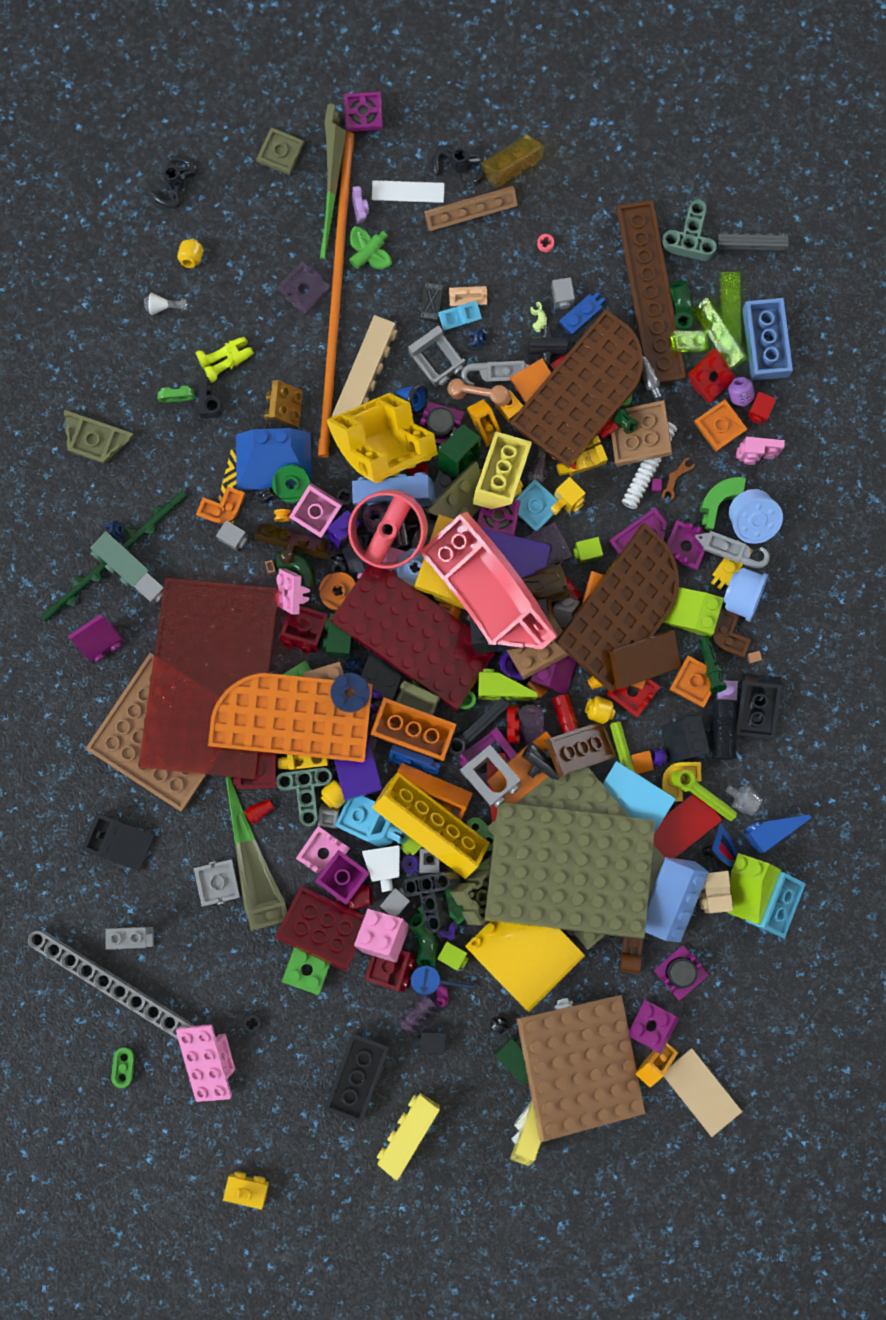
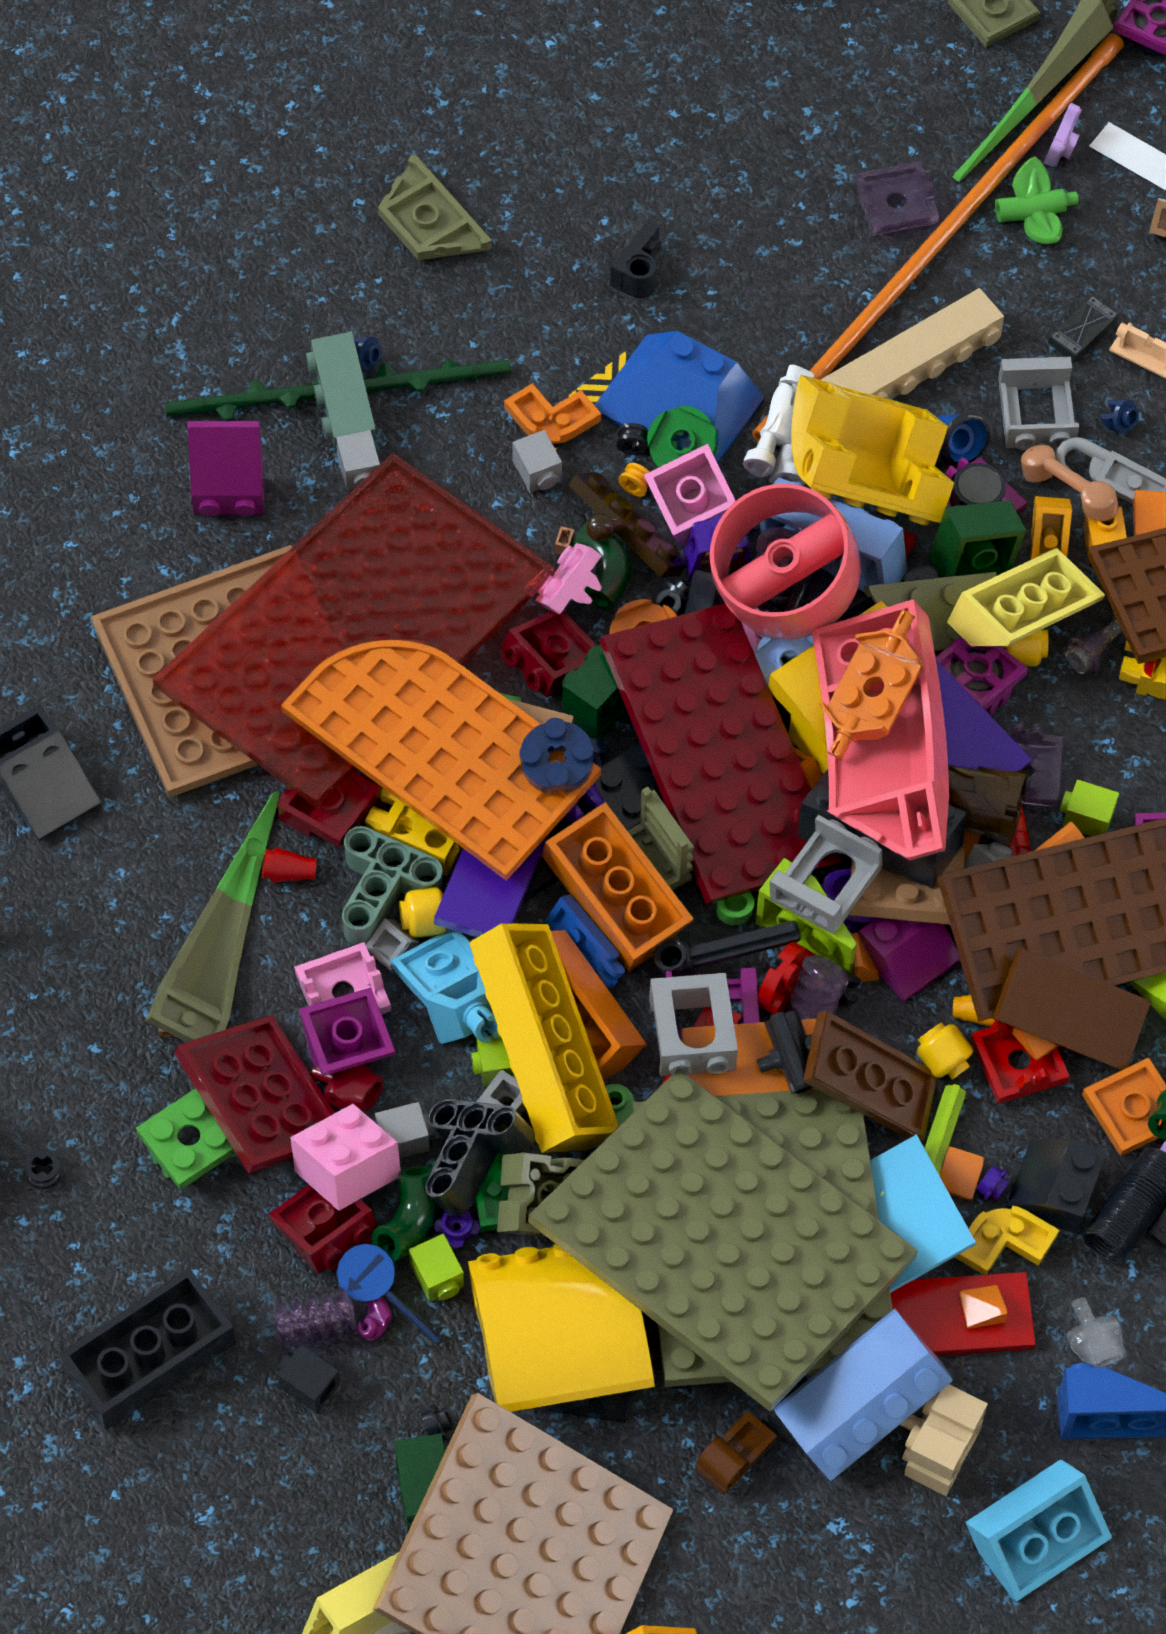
camera: 30 degrees right, 20 degrees down
(156, 304) = (655, 96): piece -> none
(168, 394) = (596, 229): bright green plate -> none
(190, 253) = (757, 59): yellow head -> none
(217, 882) = (145, 928): light grey plate -> none
(234, 357) = (727, 222): neon yellow piece -> none
(284, 404) = (752, 328): pearl gold plate -> none
(331, 449) = (777, 432): none -> white piece
(383, 865) = (426, 1062): white torso -> none
(408, 1135) = (164, 1494): light yellow slope -> none
(410, 869) = (468, 1082): dark purple plate -> none
(459, 315) = (1115, 370): medium azure slope -> none
(468, 584) = (879, 658): none -> orange plate
(492, 654) = (829, 837): none -> light grey panel
(536, 505) = (1052, 697): medium azure plate -> none
(565, 713) = (886, 1013): red axle -> none
(569, 497) = (1110, 708): yellow brick -> none
(665, 1025) = (681, 1606): magenta piece -> none
(681, 973) = (799, 1538): piece -> none
(691, 785) = (1029, 1277): lime axle -> none
(691, 818) = (983, 1306): none -> orange slope
(722, 847) = (1007, 1385): shield -> none
(752, 887) = (1013, 1469): lime slope -> none

